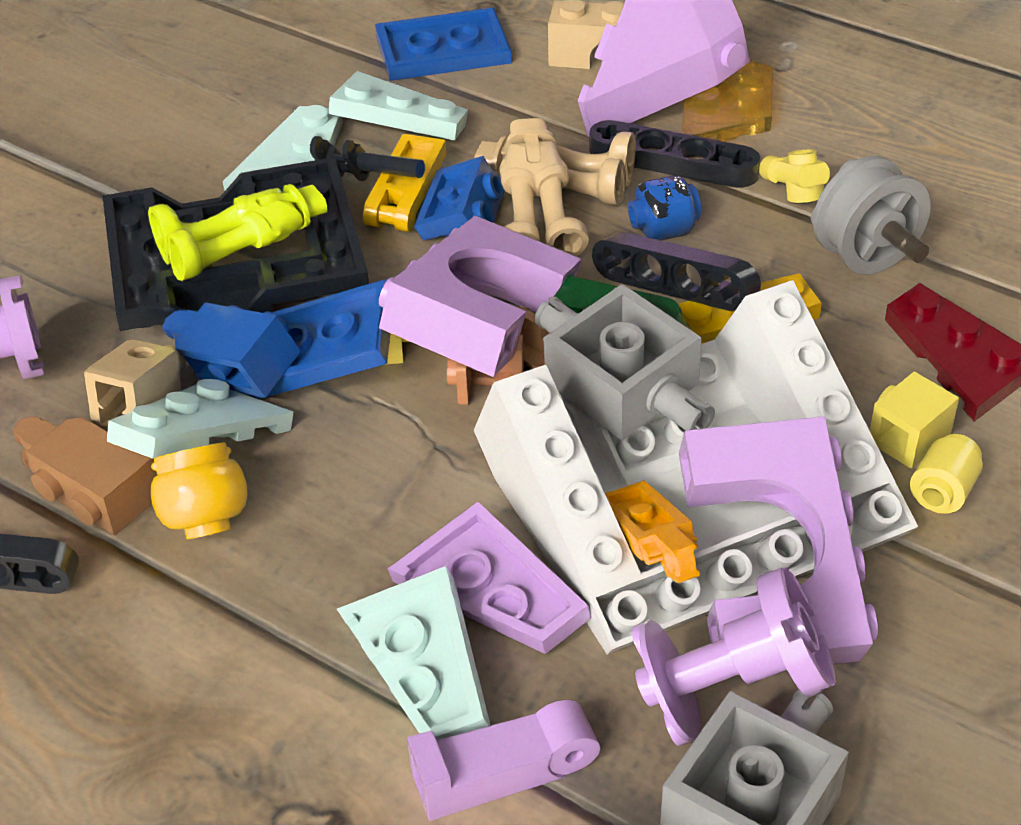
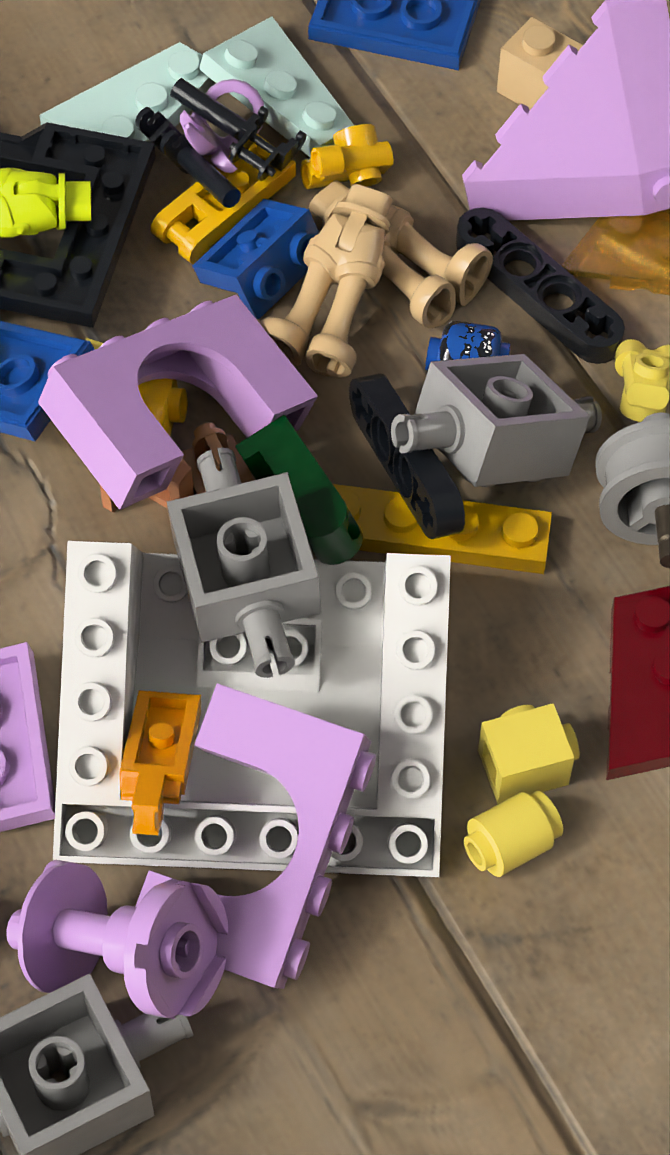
camera: 25 degrees right, 15 degrees up
(368, 137) = (201, 135): none -> lavender piece
(391, 127) = (242, 130): none -> black piece
(479, 123) = (354, 158): none -> yellow plate
(729, 219) = (497, 420): none -> light grey brick

